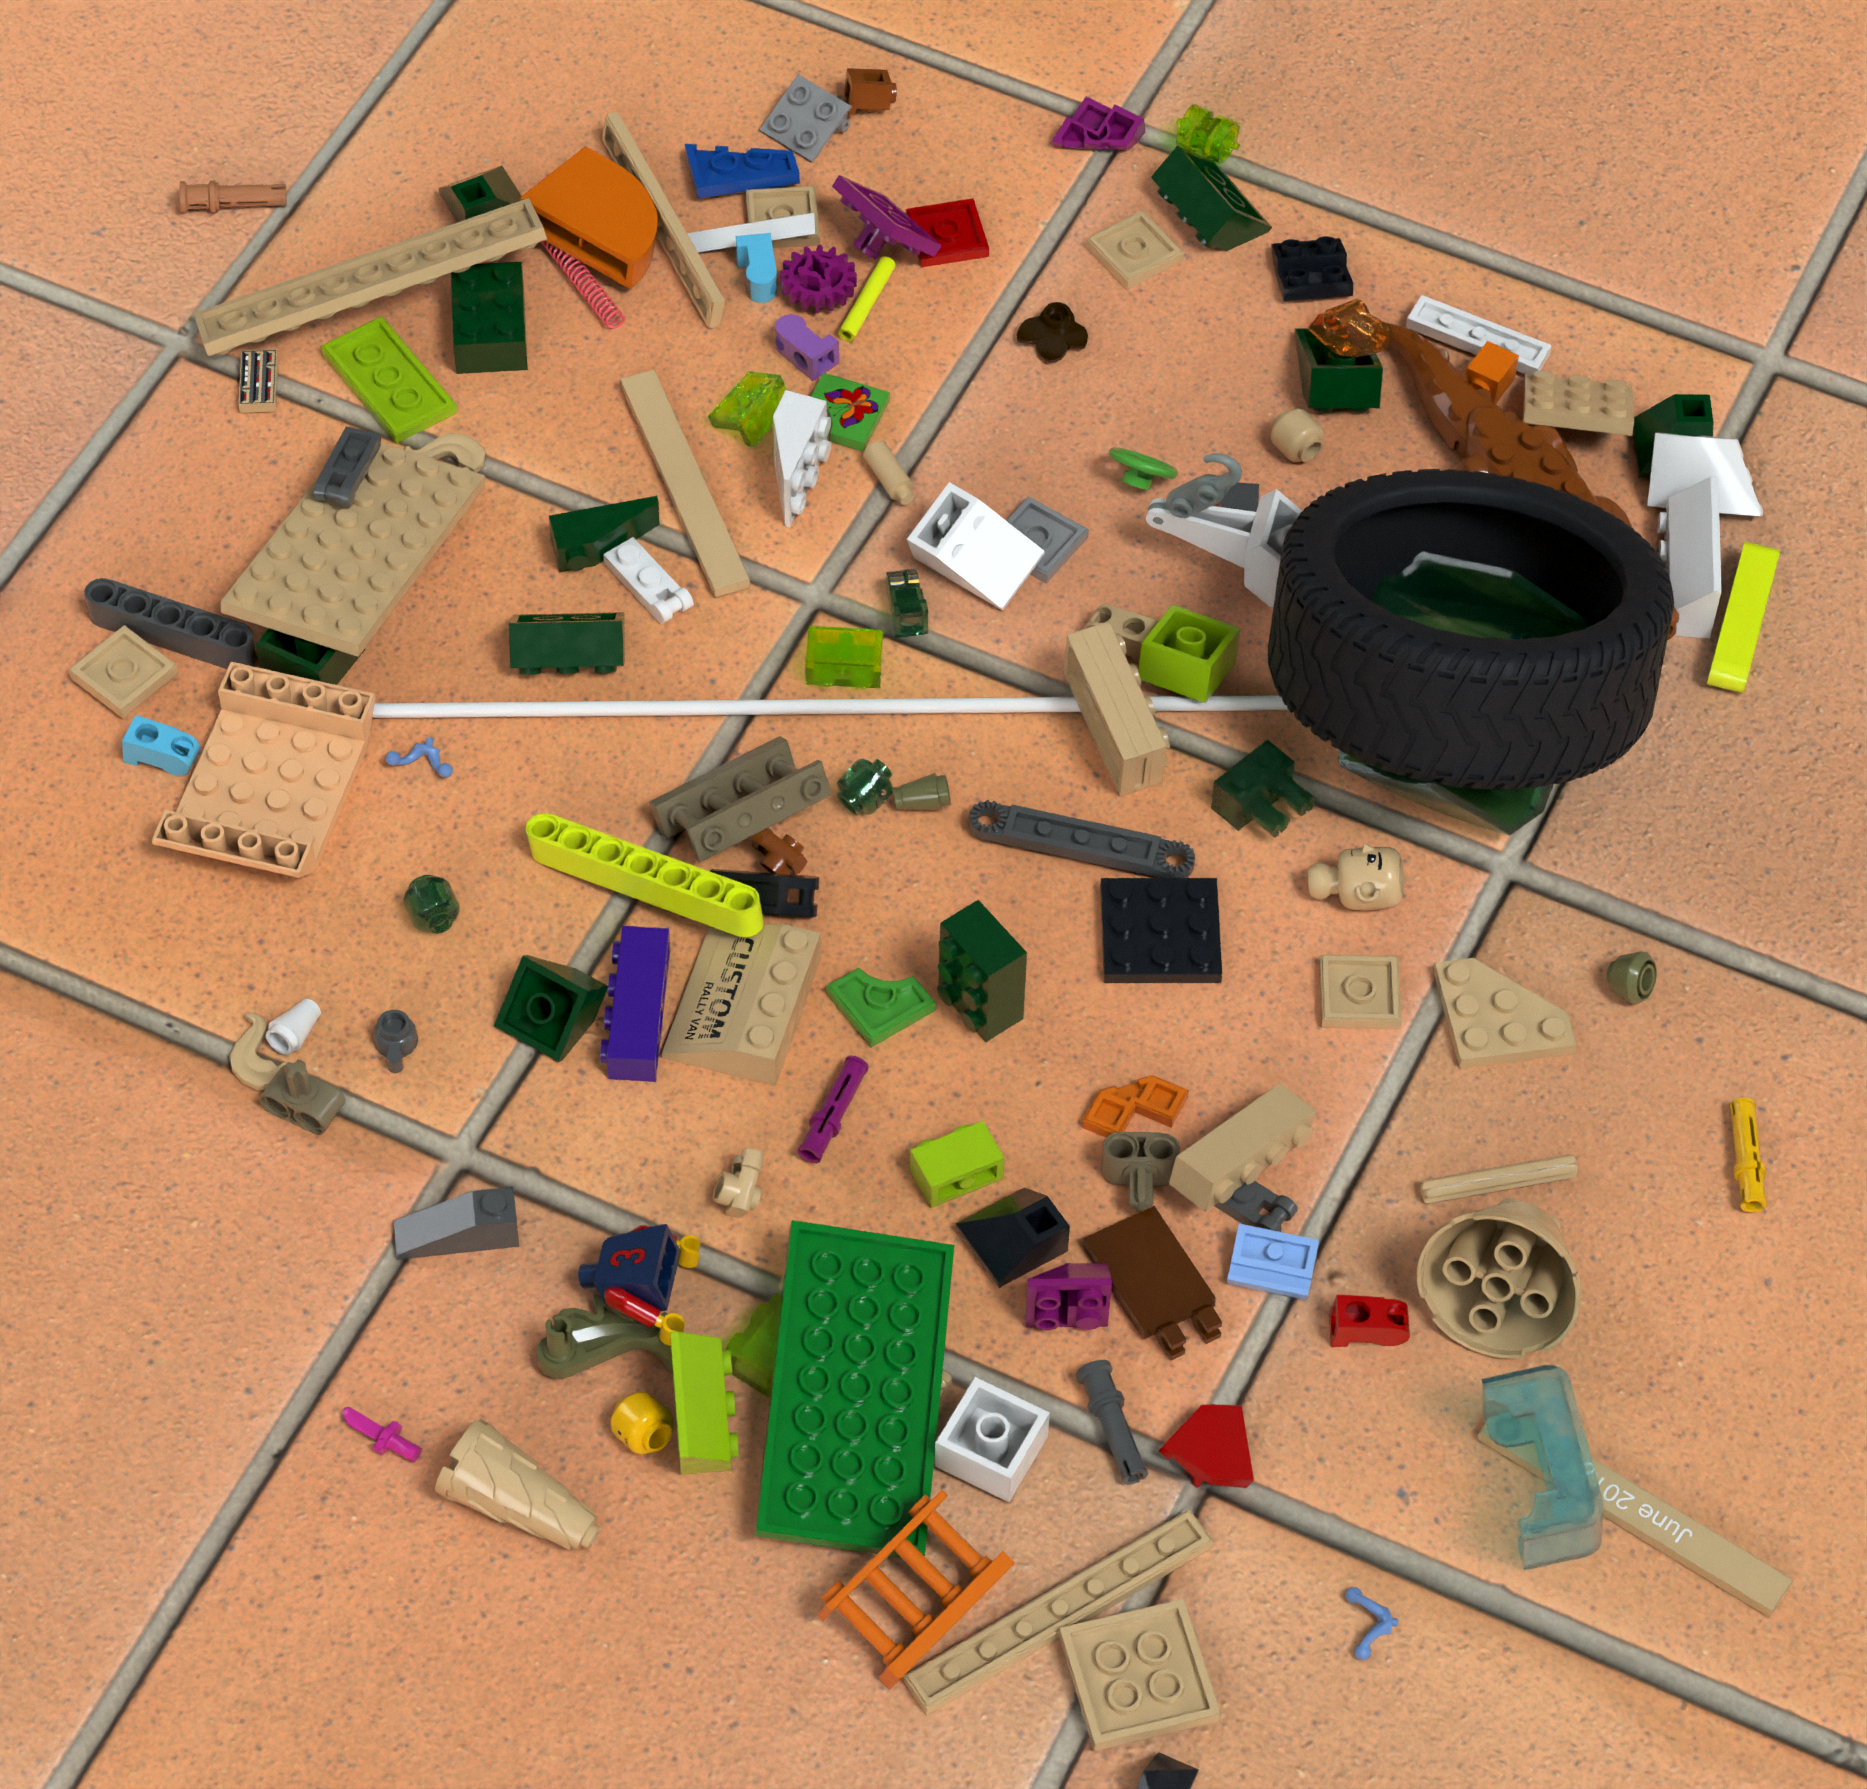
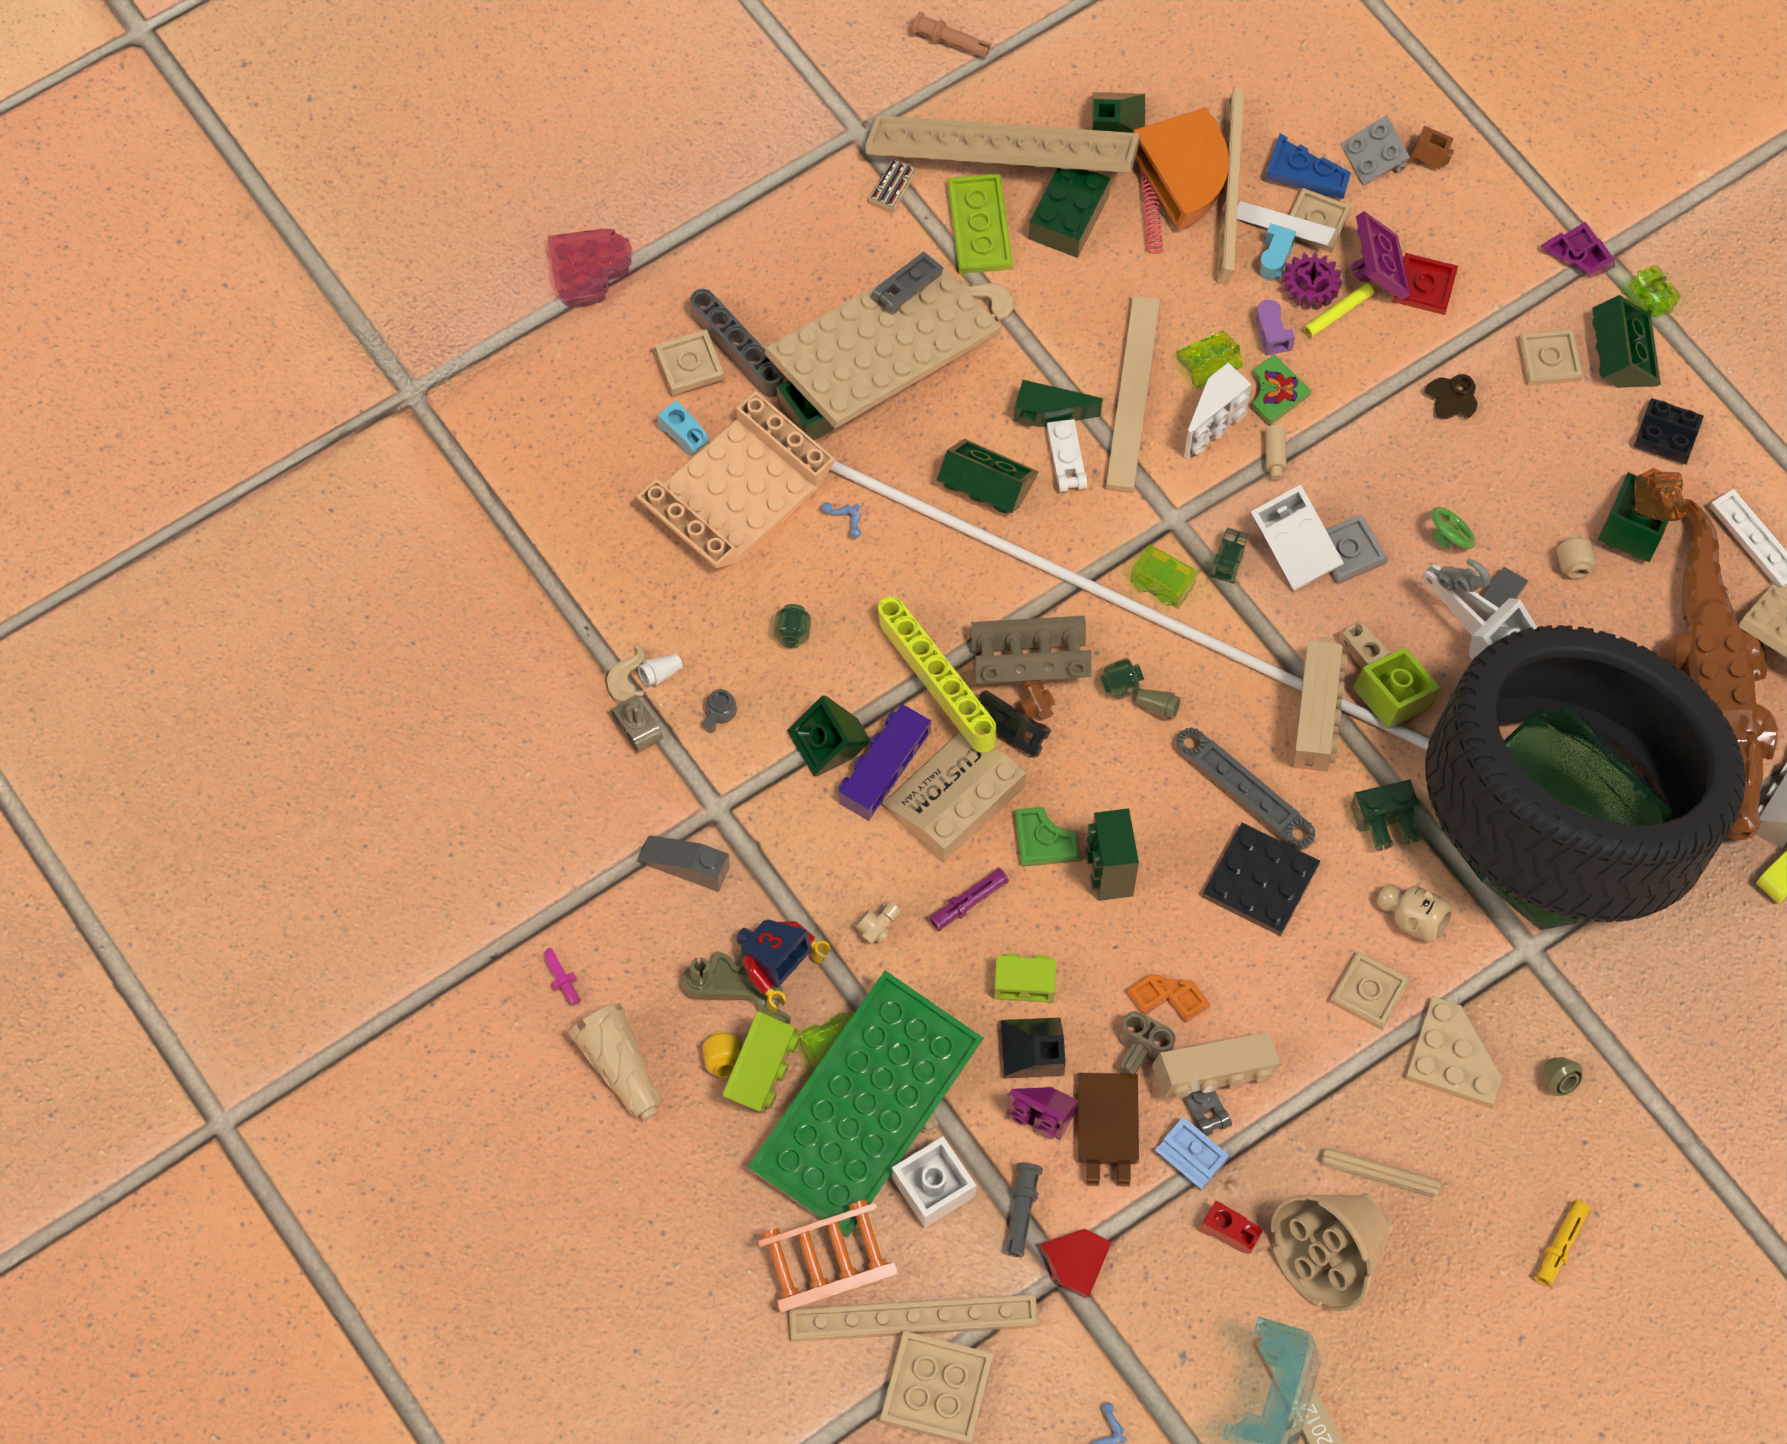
camera: 30 degrees right, 10 degrees up
(1493, 370) = (1744, 574): orange brick -> none

